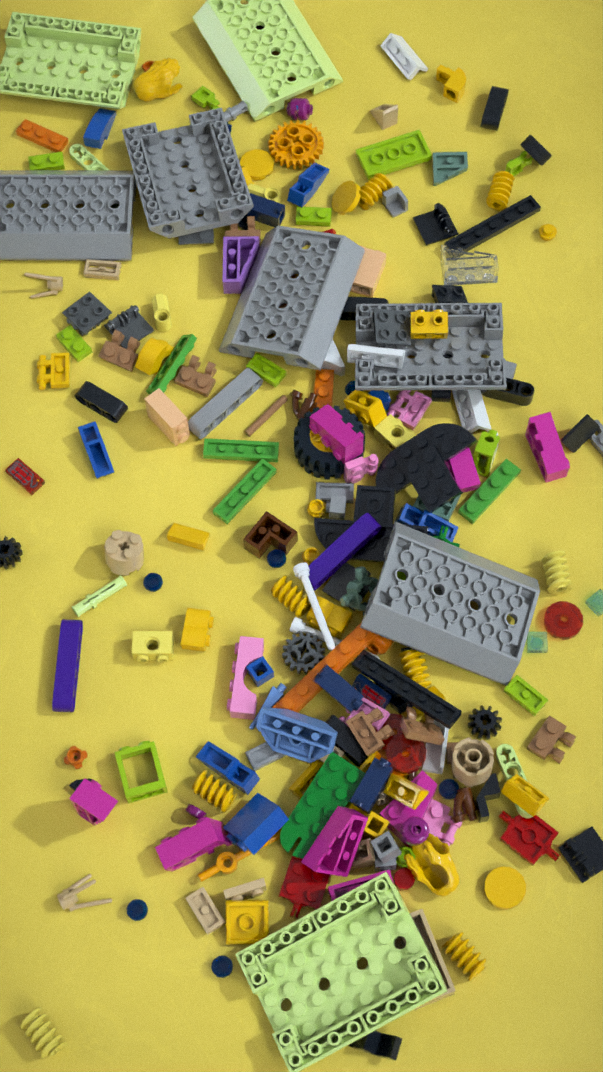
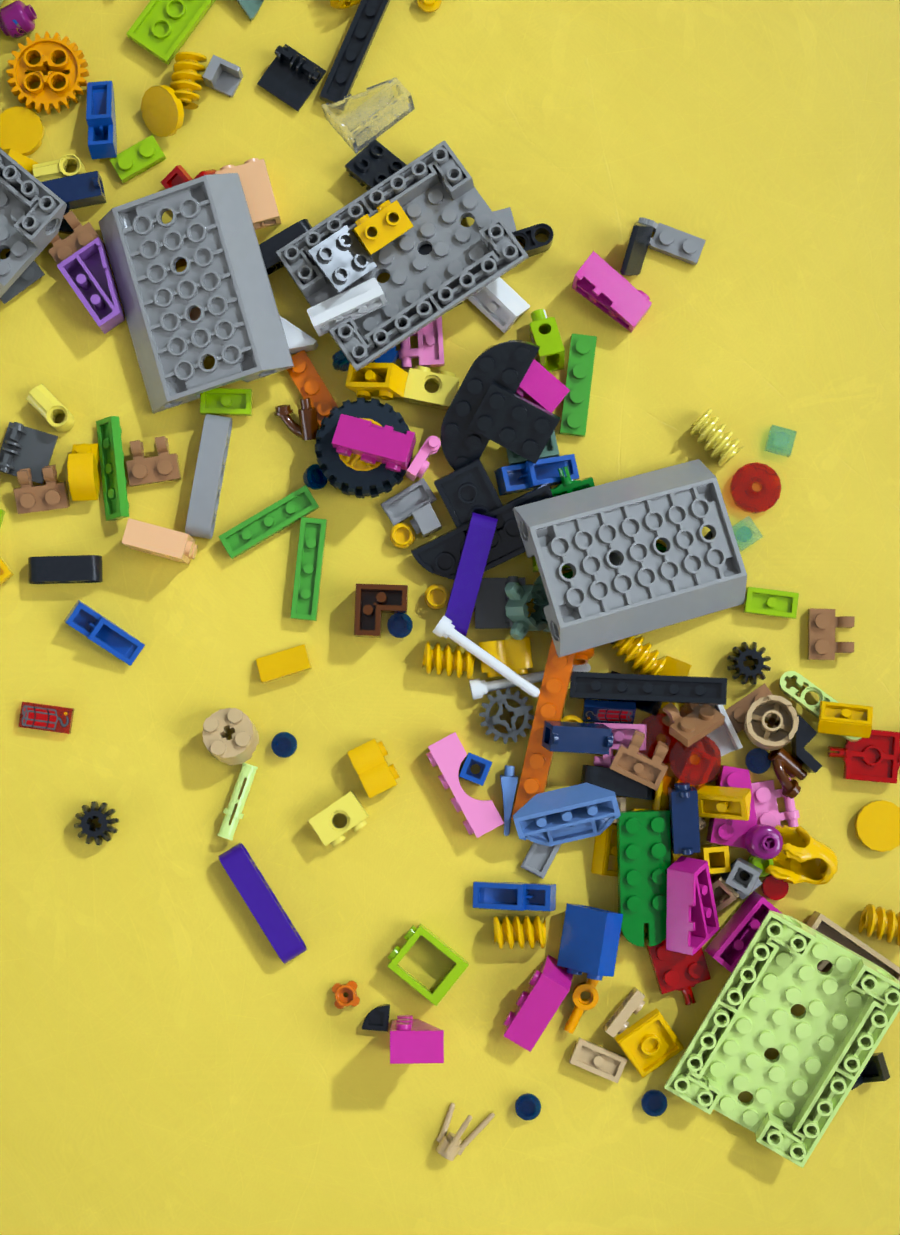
camera: 35 degrees left, 20 degrees up
(195, 812) = (515, 966): magenta tile -> none
(266, 415) = (265, 458): medium nougat bar -> none
(287, 442) = (314, 477): none -> plate

